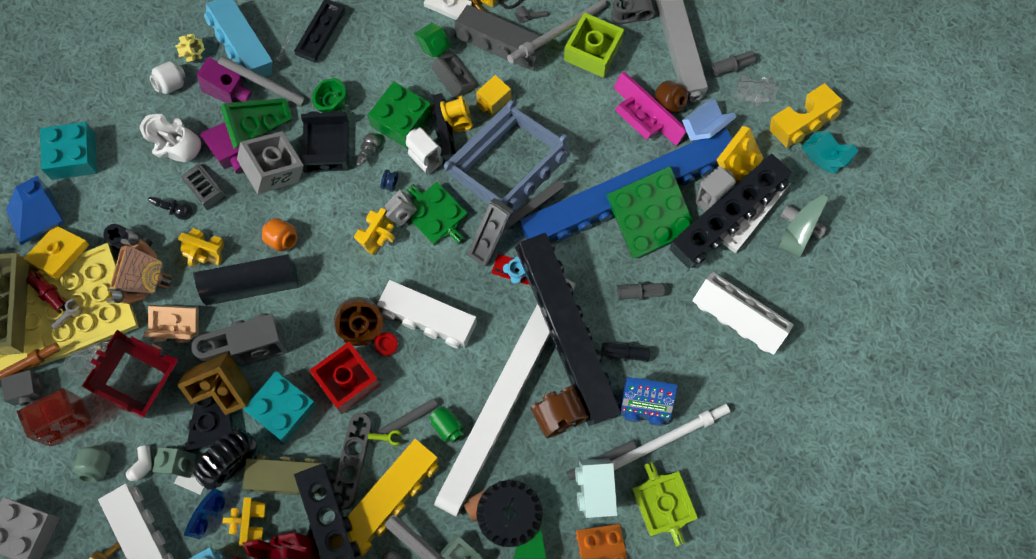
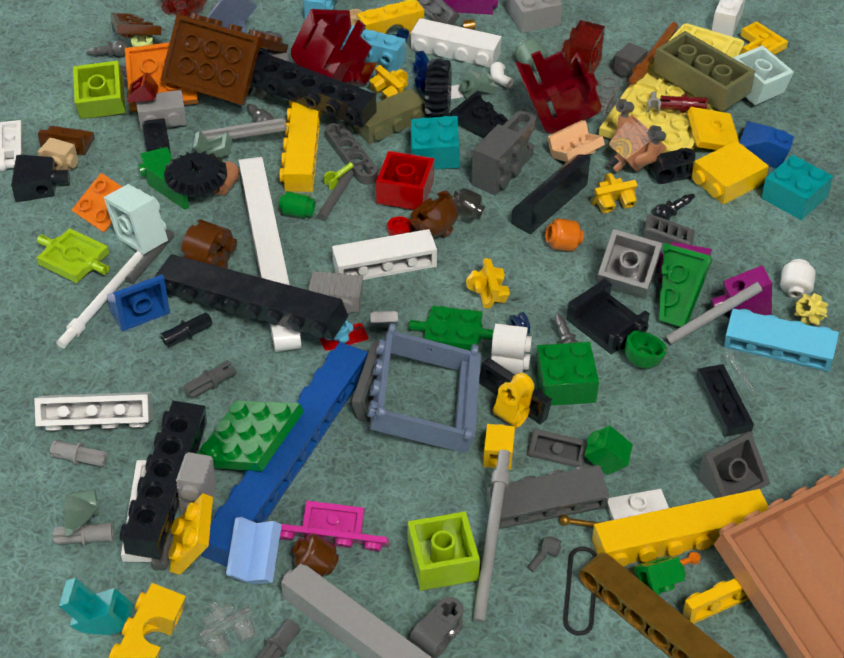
camera: 140 degrees right, 25 degrees down
(94, 203) = (729, 172): none -> yellow brick
(170, 139) = (730, 238): white head -> none
(218, 379) = (484, 118): pearl gold brick -> none
(320, 320) = (468, 205): none -> clear smoke head
(400, 208) = (485, 307): light grey bracket -> none
(492, 304) = (341, 286): none -> light grey brick
(771, 290) = (78, 453): none -> light grey axle

